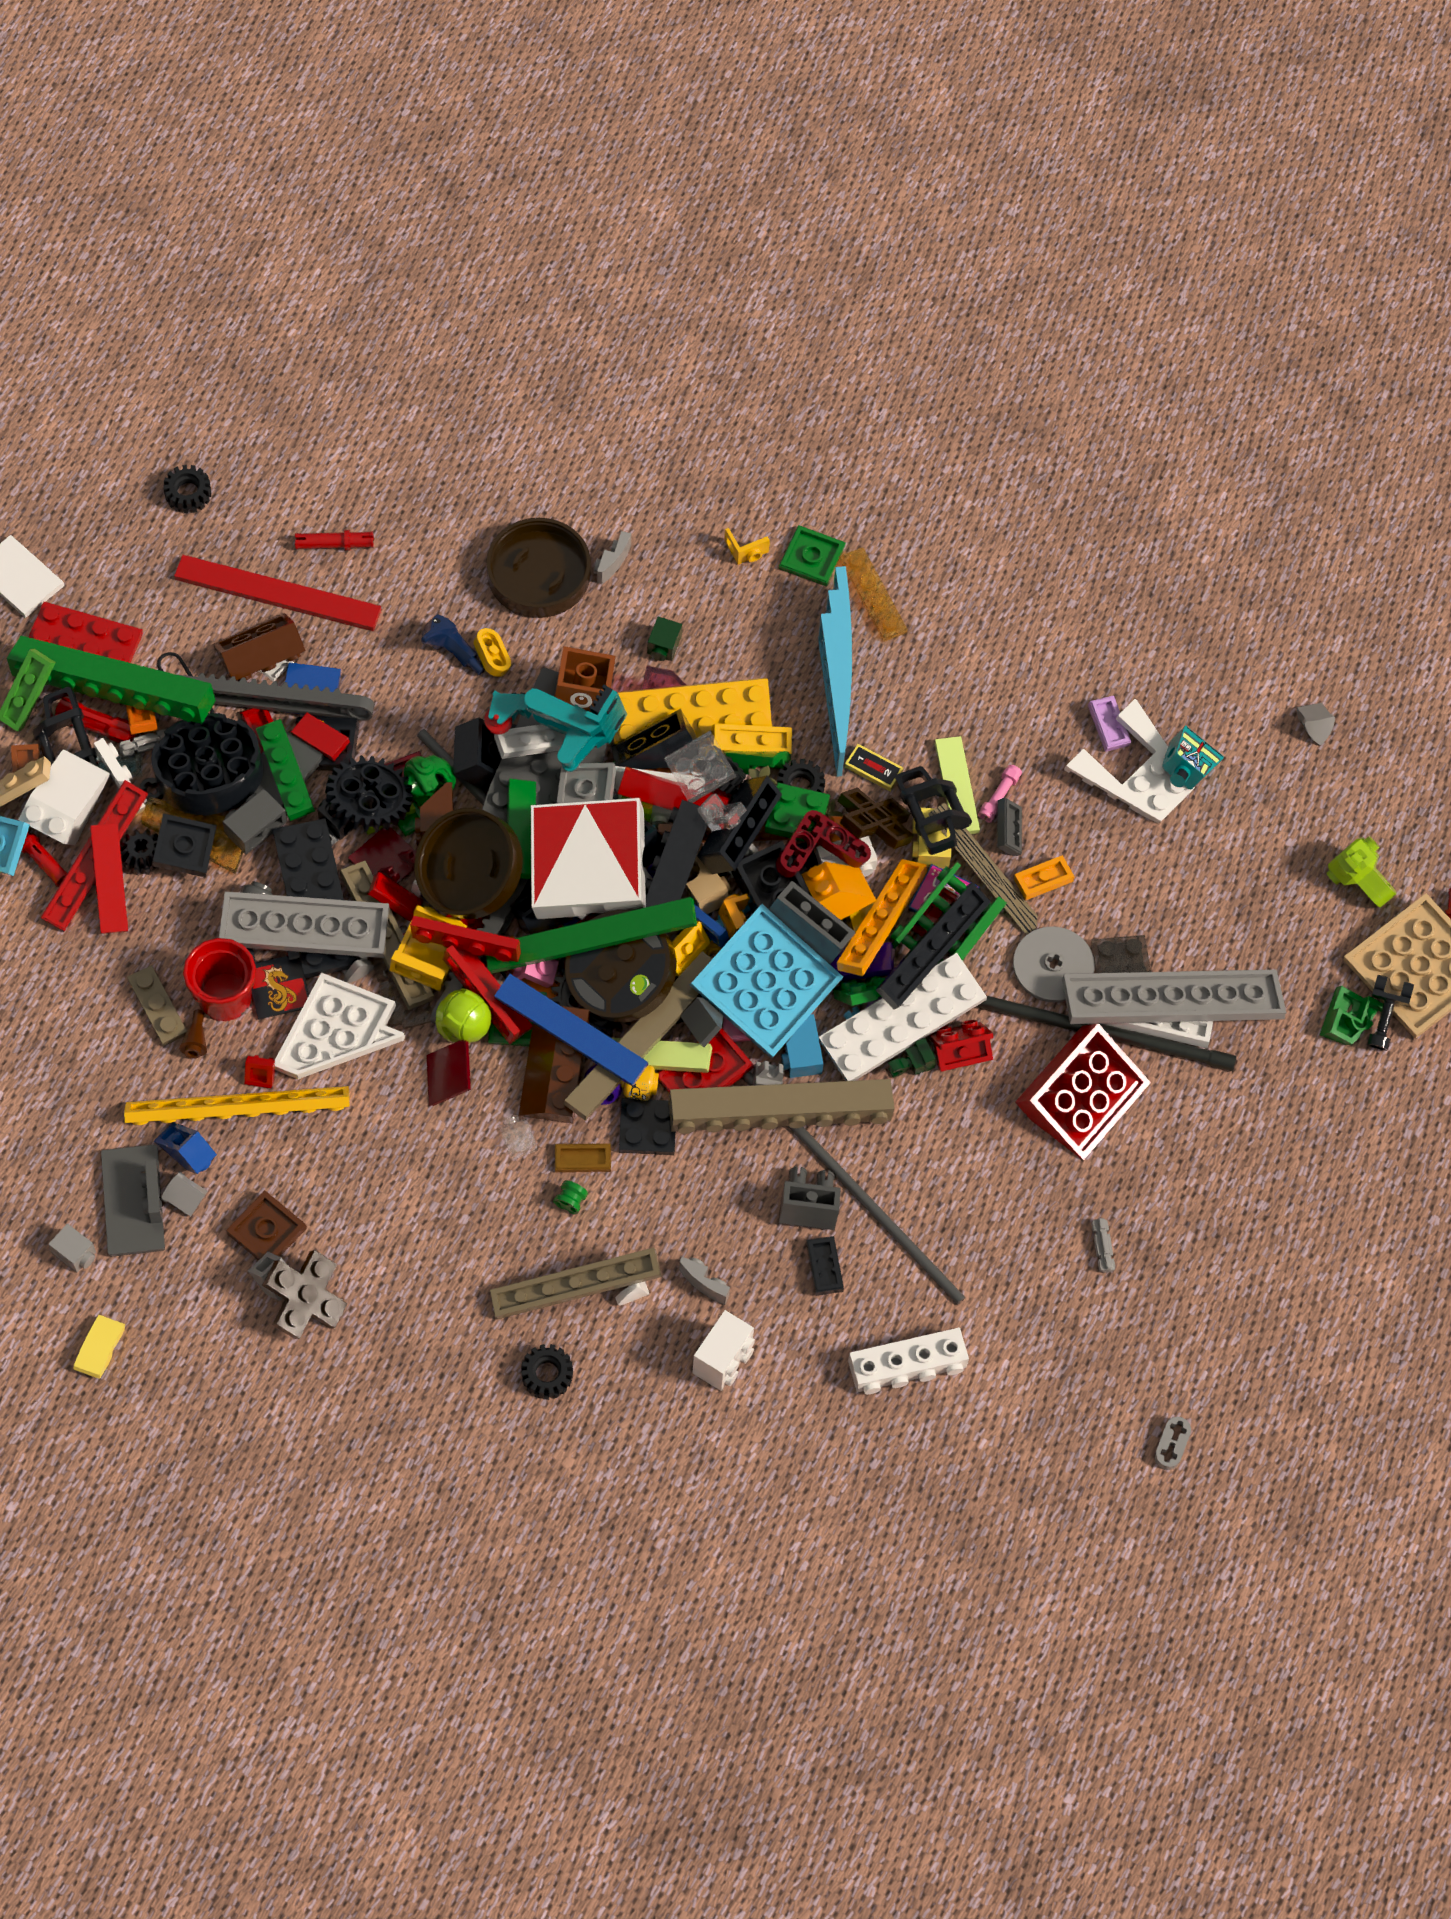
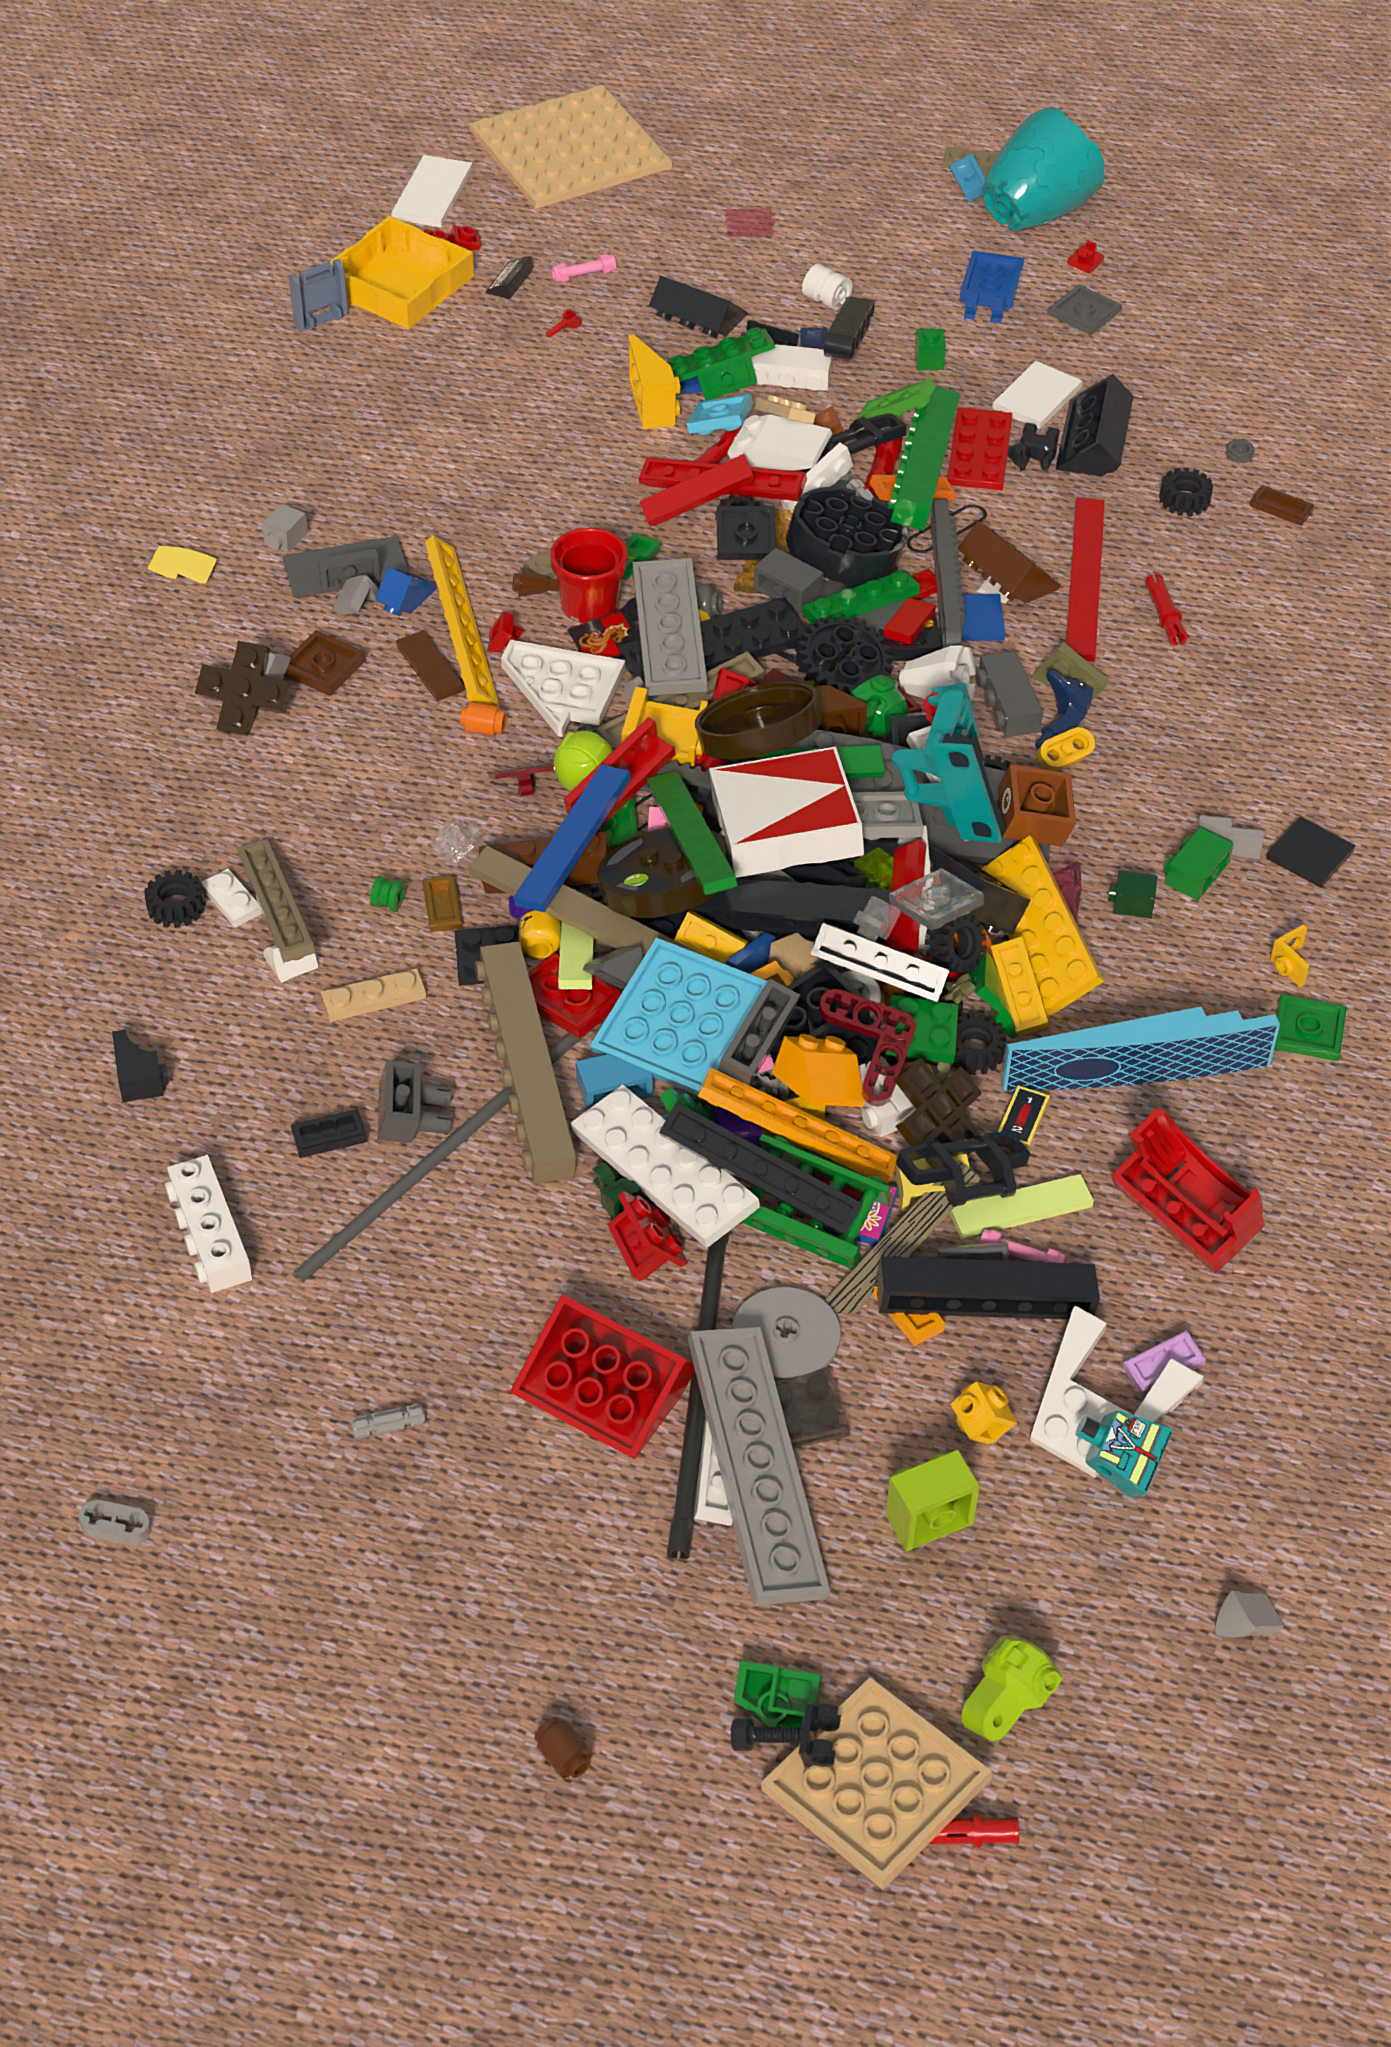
camera: 85 degrees right, 15 degrees down
(86, 540) = (1096, 429): none -> black slope
(96, 592) = (1035, 446): none -> black animal
(135, 434) = (1240, 451): none -> dark grey tile
(170, 942) = (640, 549): none -> green plate
(215, 421) = (1282, 505): none -> reddish brown tile
(284, 1139) = (430, 666): none -> reddish brown tile
(370, 1099) = (483, 719): none -> orange brick
(395, 727) = (939, 669): none -> white cone
(407, 628) = (1071, 666): none -> olive wing
(419, 680) = (1009, 694): none -> dark grey brick
(465, 938) = (666, 744): red plate -> none
(538, 567) = (1191, 772): dark brown piece -> none
(548, 1327) = (231, 898): none -> white plate
(632, 507) = (1310, 852): none -> black tile
(638, 586) = (1198, 863): none -> green brick
(678, 1220) = (373, 995): none -> tan plate
(696, 1273) = (296, 1016): light grey slope -> none
(723, 1351) = (201, 1035): white brick -> none
(742, 1410) = (137, 1070): none -> black arch
(767, 1074) = (566, 1050): light grey tile -> none
(873, 594) = (1274, 1093): clear yellow plate -> none
(970, 656) = (1199, 1203): none -> red piece
(1039, 820) = (985, 1287): none -> black brick
(1144, 844) = (983, 1412): none -> yellow brick
(1219, 889) = (932, 1499): none -> lime brick
(1381, 1154) = (563, 1748): none -> reddish brown brick

